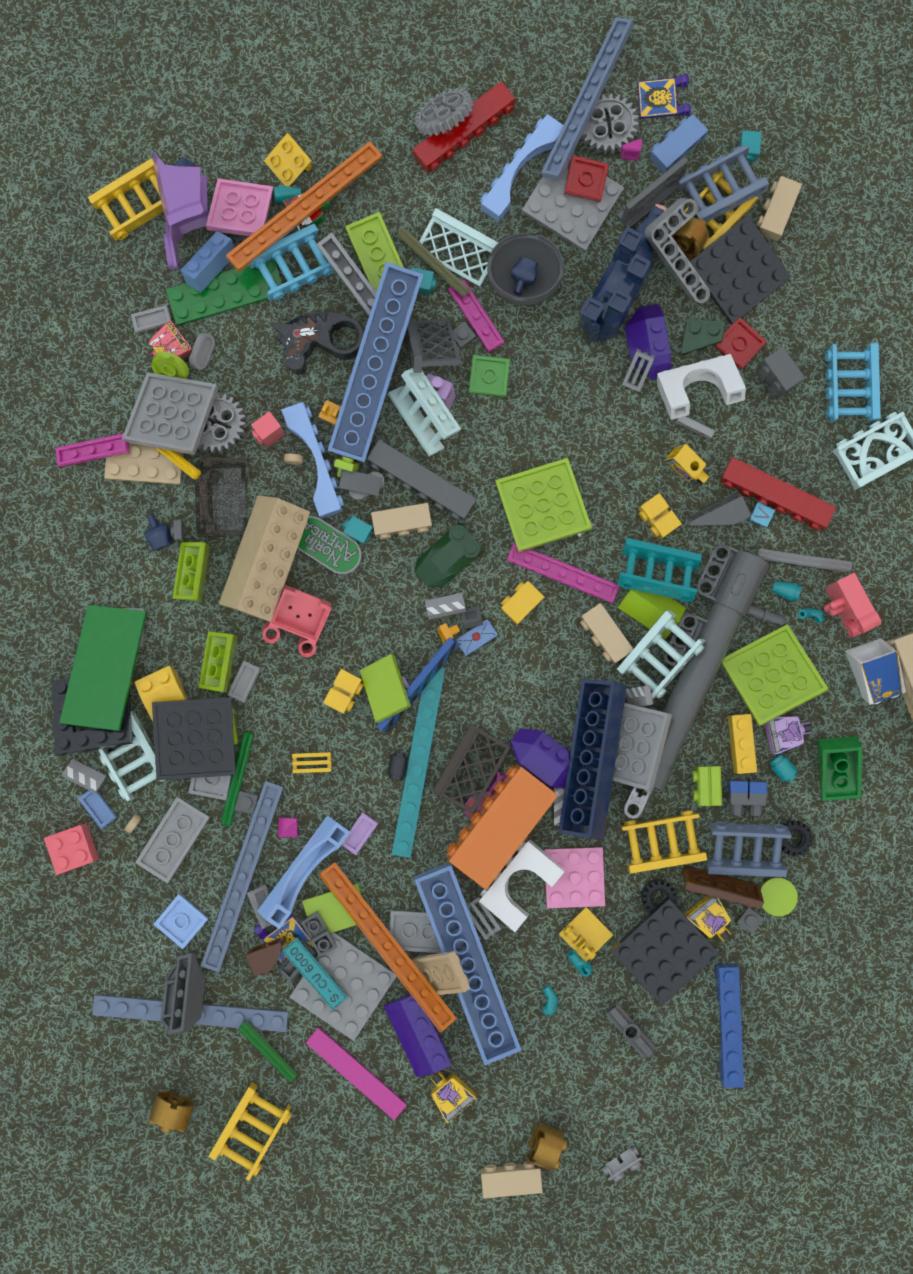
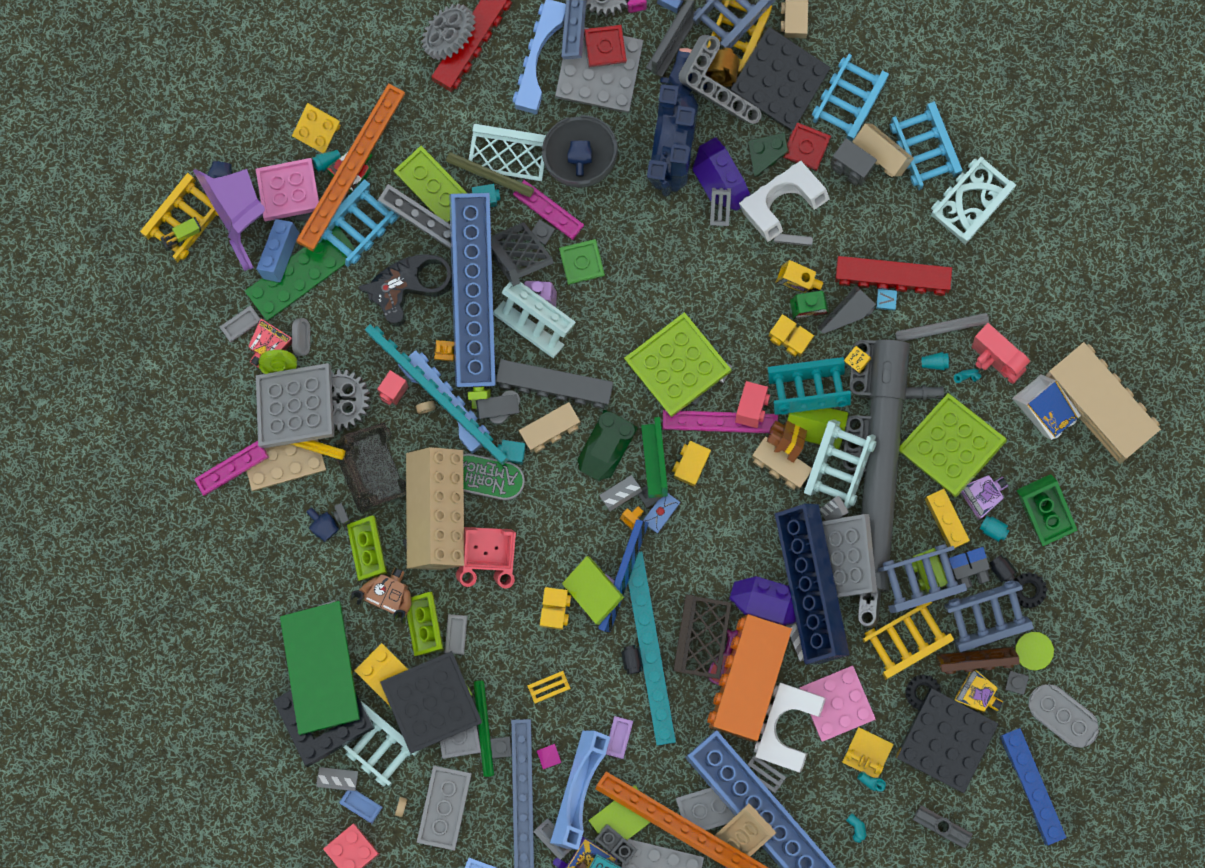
camera: 20 degrees left, 5 degrees down
(123, 211) = (181, 233): none -> lime piece
(192, 621) = (386, 594): none -> nougat torso
(303, 442) = (442, 398): none -> teal plate
(488, 586) = (654, 459): none -> green fence
(598, 568) = (751, 405): none -> coral brick
(620, 613) = (787, 438): none -> dark orange hips
(687, 493) = (809, 304): none -> green torso
(706, 811) = (935, 592): none -> sand blue fence
(714, 561) = (857, 359): none -> yellow tile
(777, 809) = (1003, 569): none -> black brick
(782, 967) = (1063, 716): none -> light grey tile
(816, 317) = (860, 113): none -> medium azure fence
(817, 379) = (884, 149): none -> tan brick

